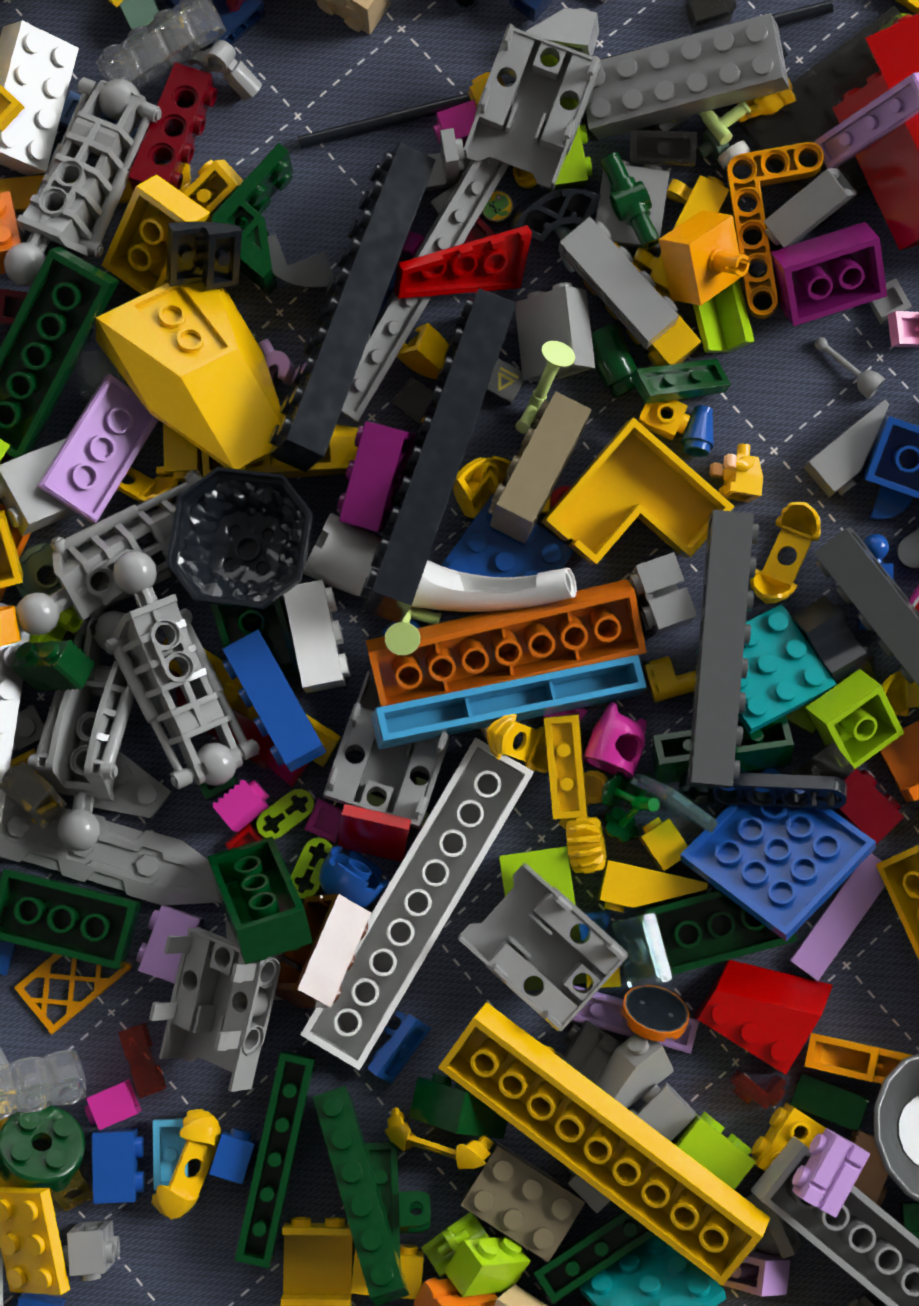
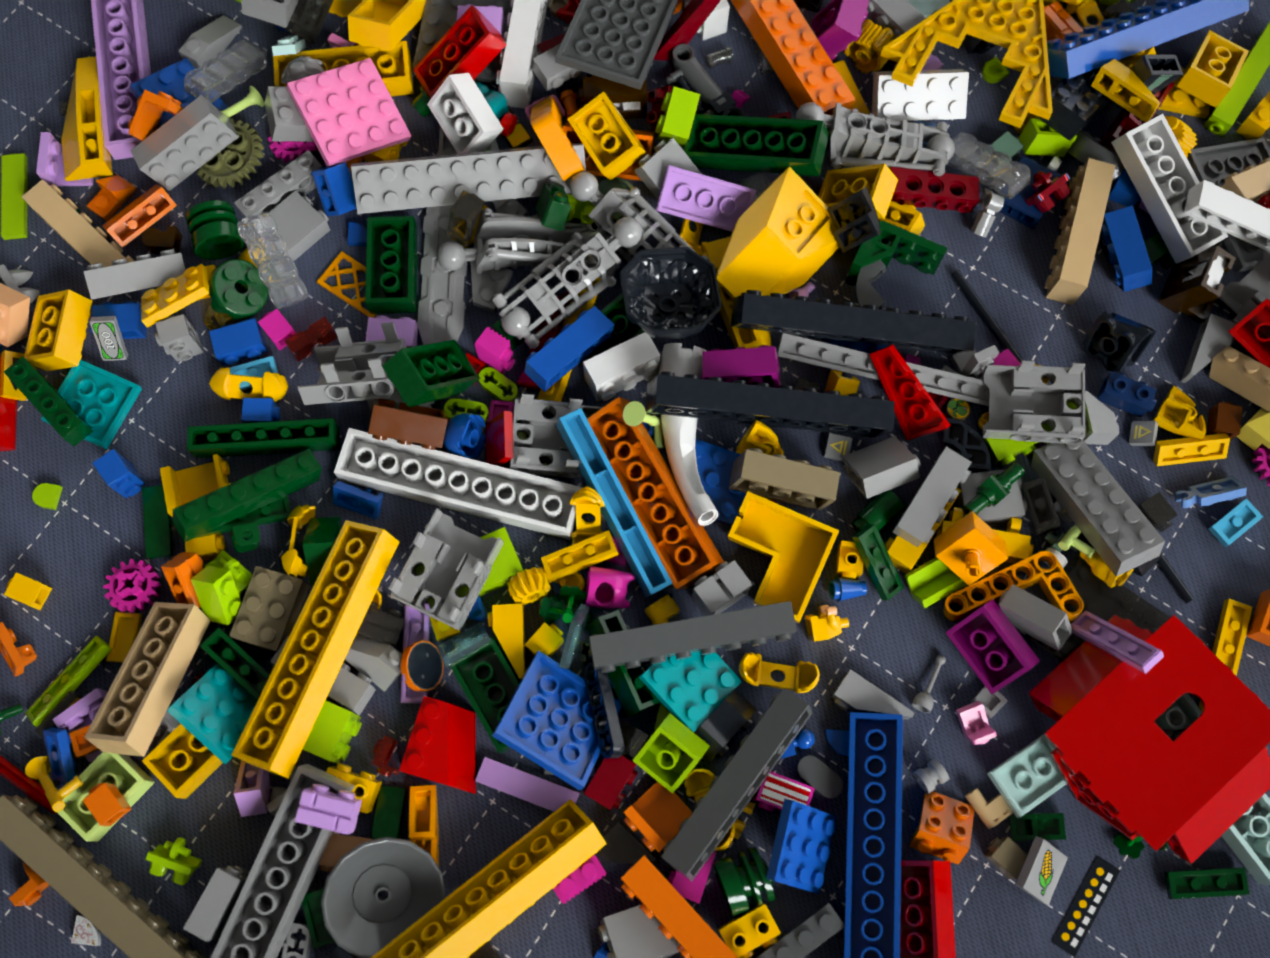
camera: 75 degrees right, 10 degrees down
(557, 356) = (865, 465): yellowish green piece -> none

